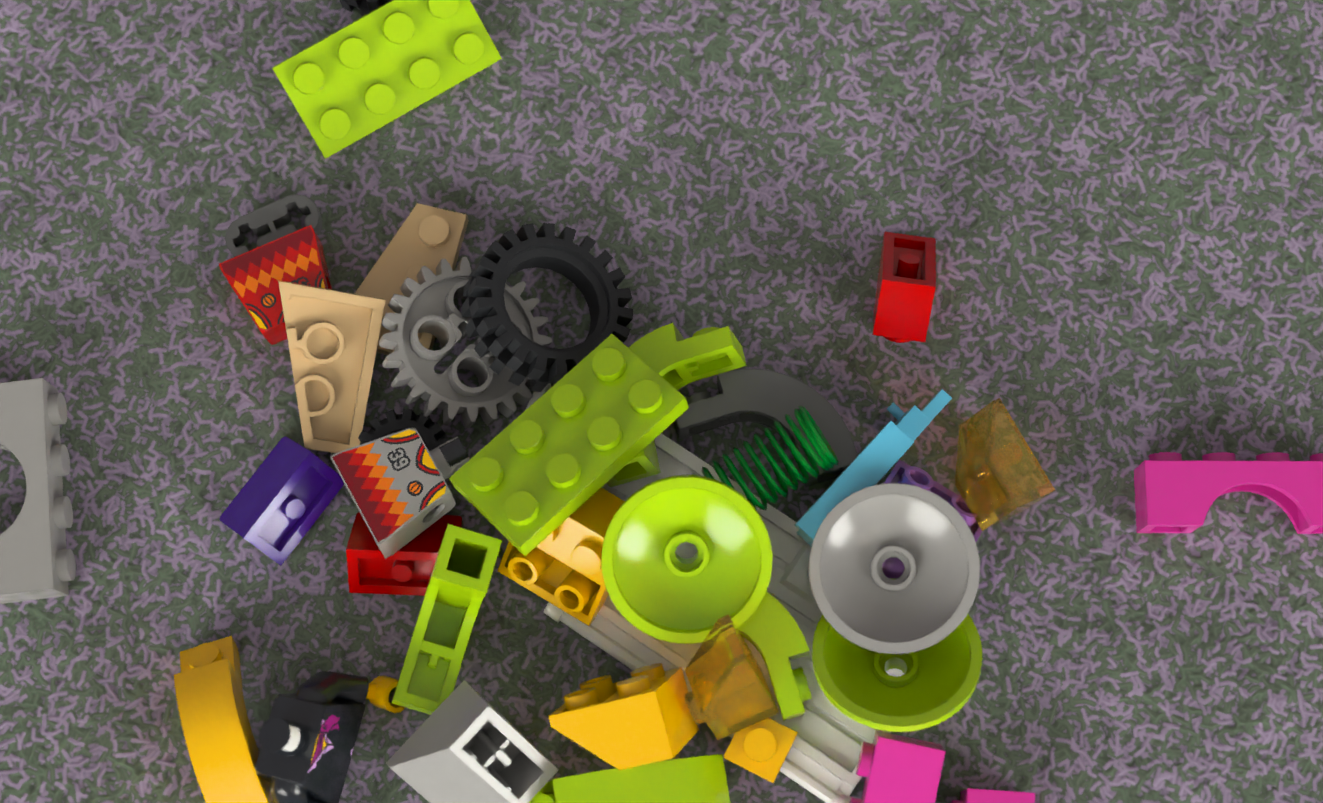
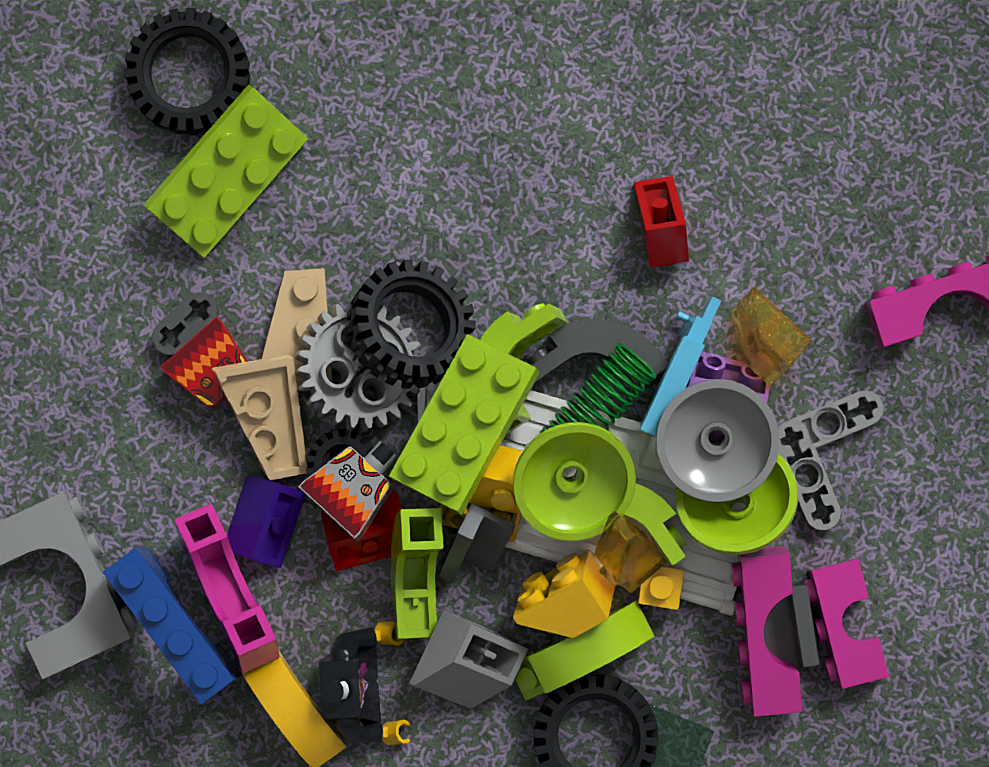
camera: 25 degrees left, 10 degrees up
(88, 523) = (195, 658): none -> blue arch
(195, 563) = (225, 589): none -> dark pink arch
(539, 605) = (477, 542): none -> dark grey panel
(1019, 619) = (814, 438): none -> light grey beam

